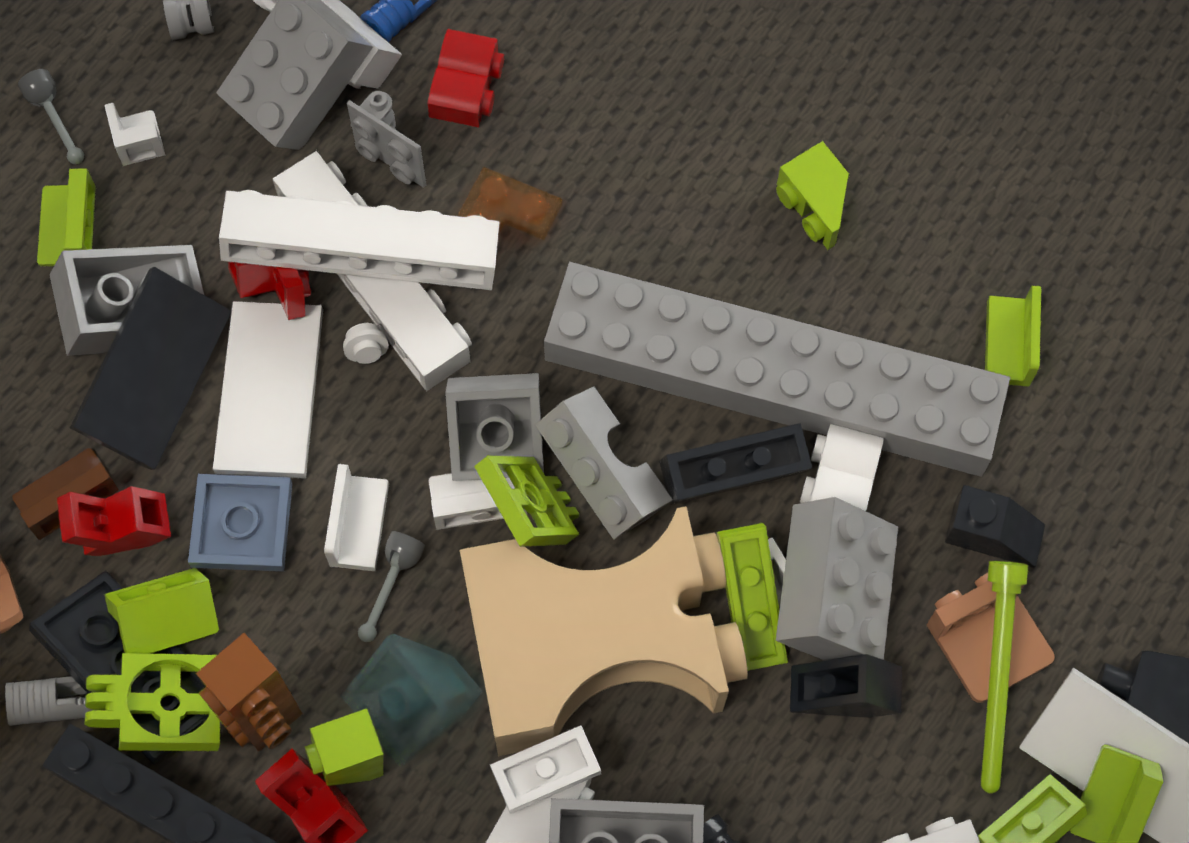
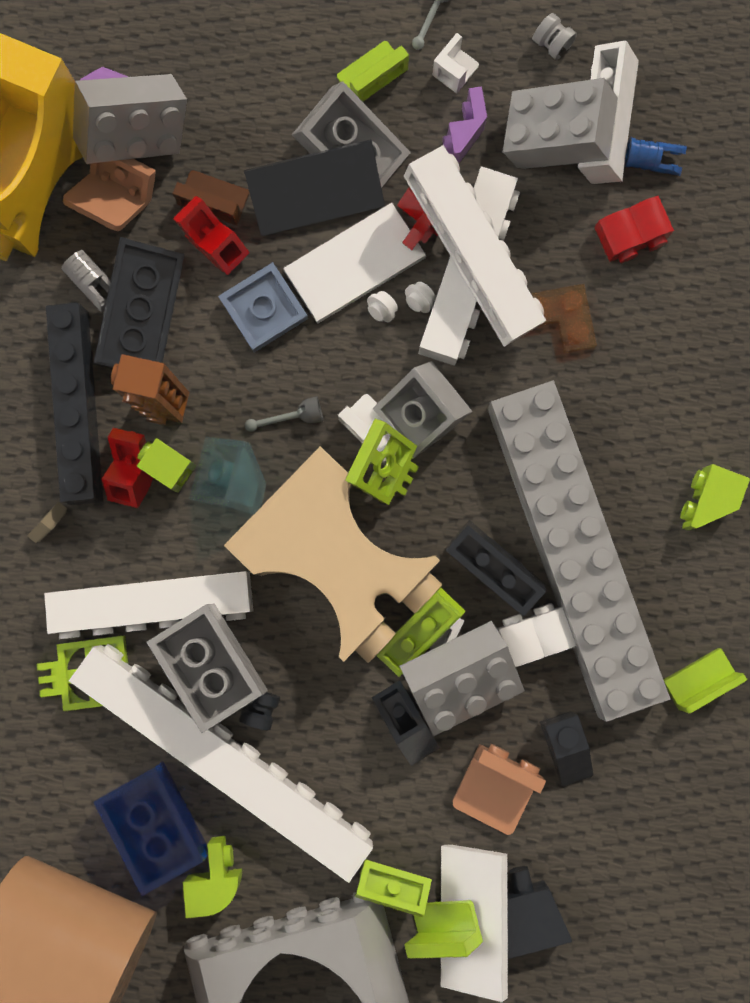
camera: 55 degrees right, 15 degrees up
(115, 703) = (110, 321): lime piece -> none
(164, 612) = (179, 303): lime panel -> none
(209, 151) = (464, 133): none -> medium lavender slope
(343, 391) = (382, 306): none -> white plate
(355, 521) = (309, 370): white panel -> none
(377, 138) = (556, 207): light grey hinge -> none
(545, 769) = (230, 585): white plate -> none
(616, 492) = (442, 466): light grey arch -> none
(1006, 582) = (529, 783): lime piece -> none

